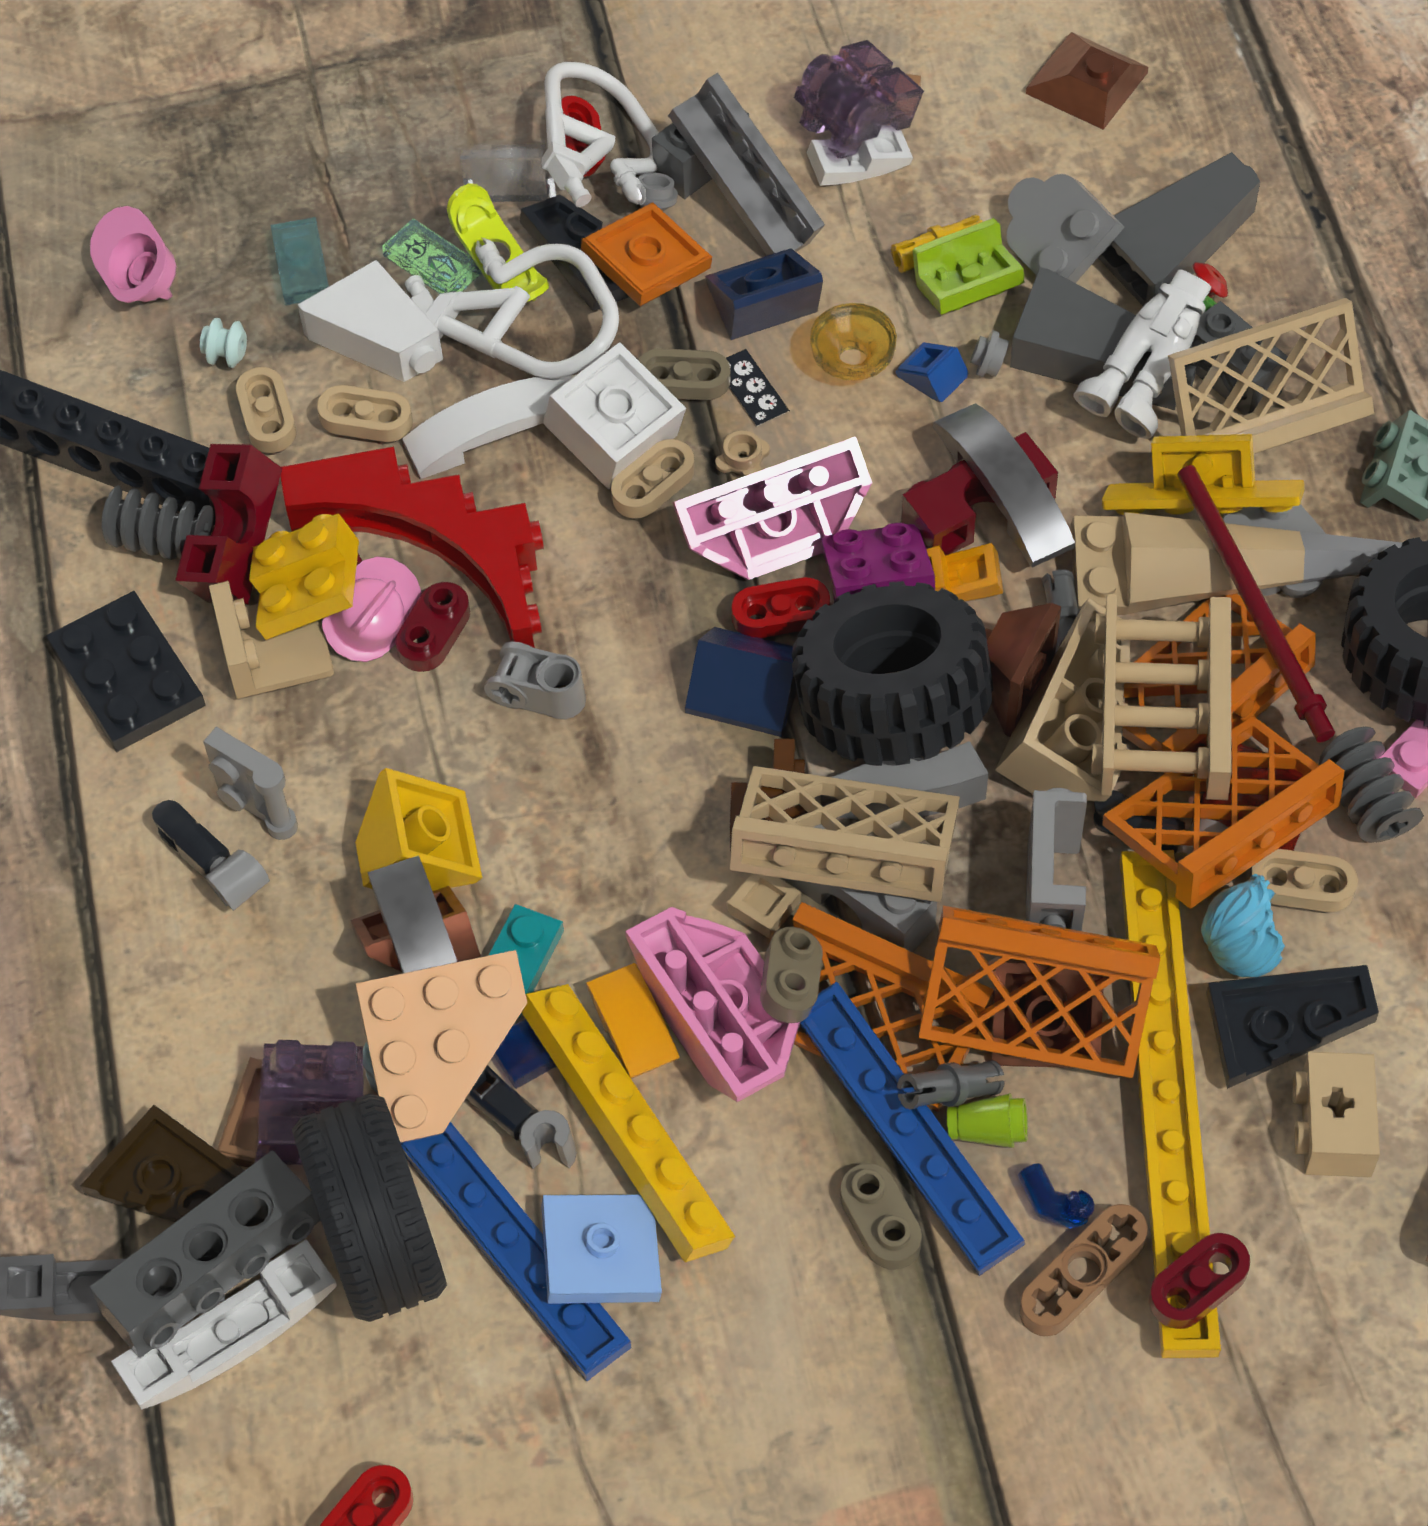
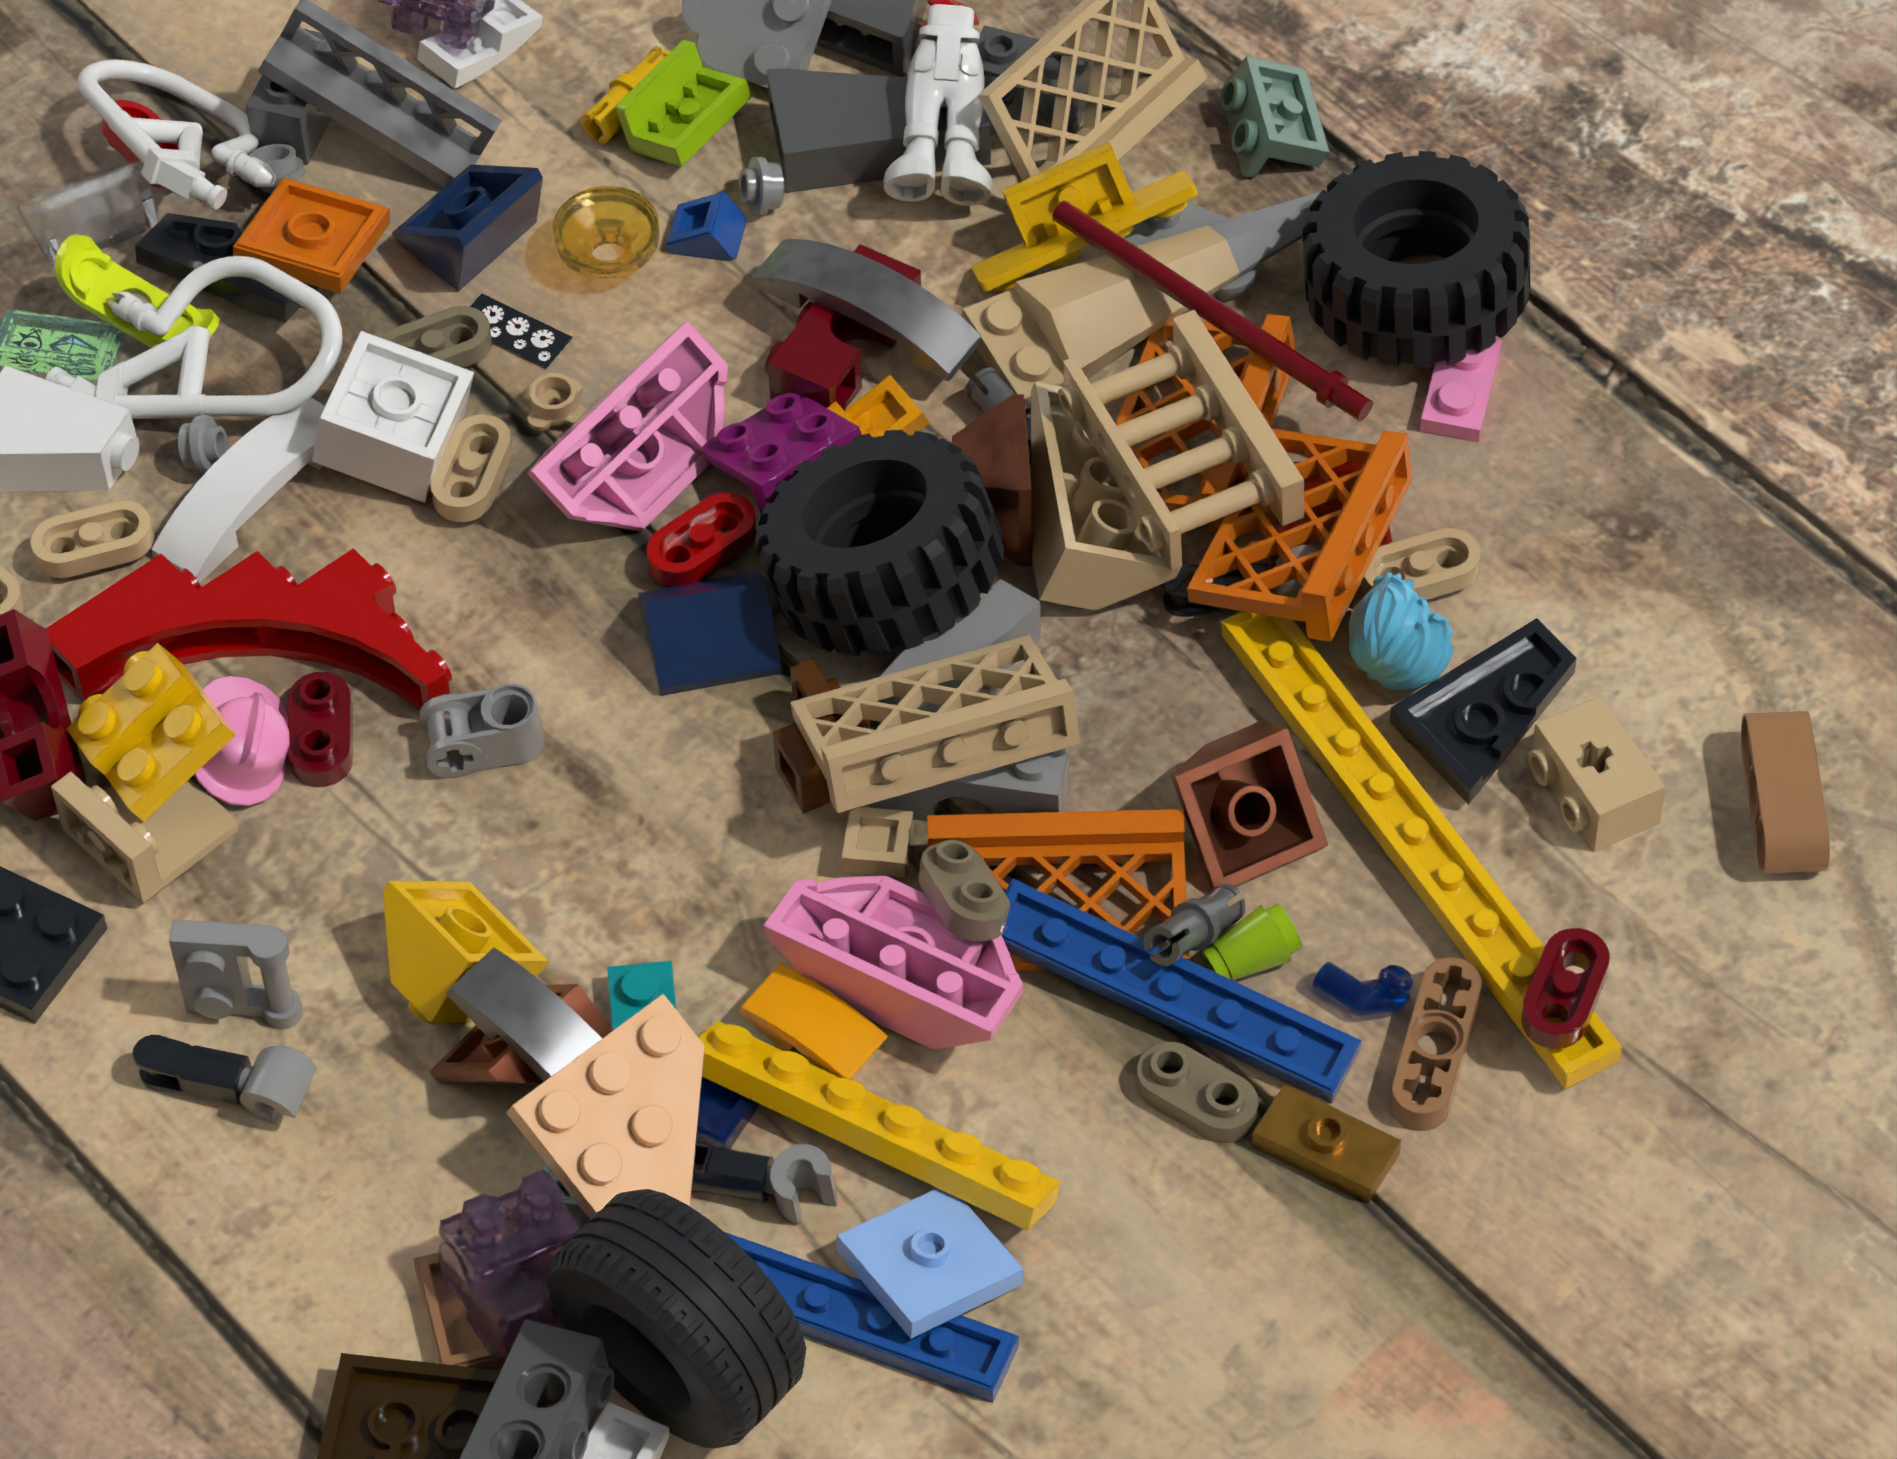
camera: 30 degrees left, 5 degrees down
(478, 375) = (201, 443): none -> light grey plate
(952, 1307) = (1326, 1143): none -> pearl gold plate
(1047, 946) = (1221, 733): orange fence -> none
(1054, 828) = (1179, 702): light grey panel -> none
(1368, 787) = (1437, 452): dark grey piece -> none

